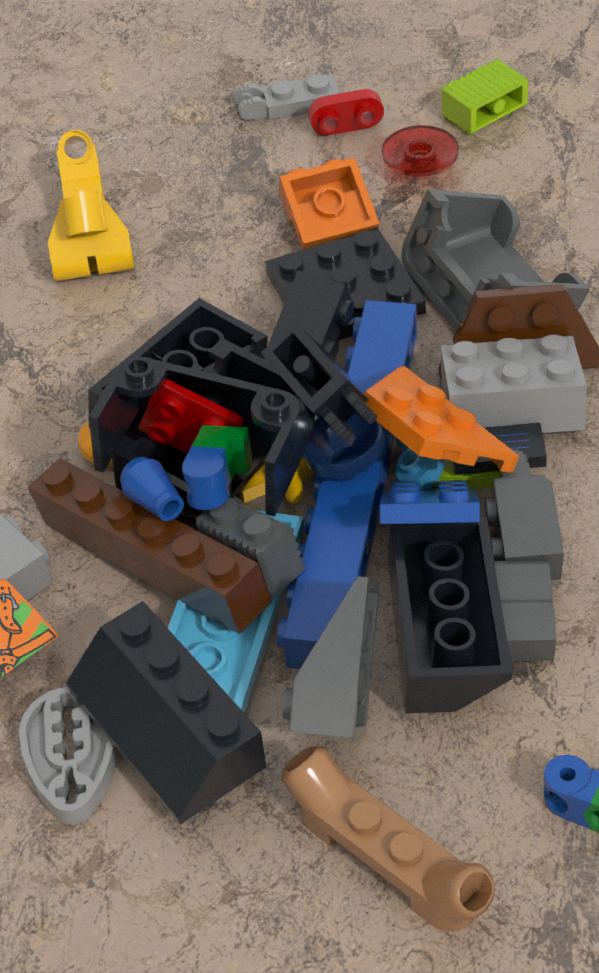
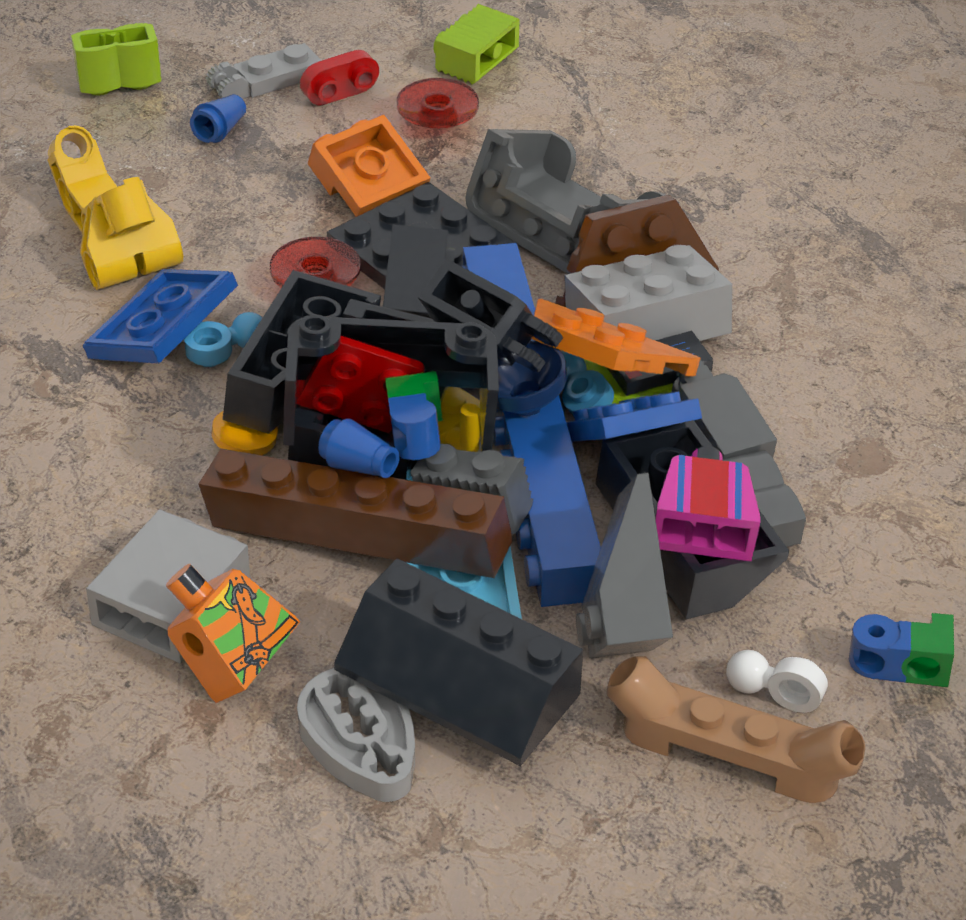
camera: 25 degrees left, 5 degrees down
(87, 317) = (160, 315): none -> blue tile
(117, 345) = (213, 342): none -> dark azure plate
(160, 67) = (116, 58): none -> lime brick
(224, 135) = (216, 118): none -> blue cone
(240, 291) = (317, 257): none -> clear red dish
(439, 612) = (708, 507): none -> dark pink torso
(469, 803) = (792, 683): none -> white plate

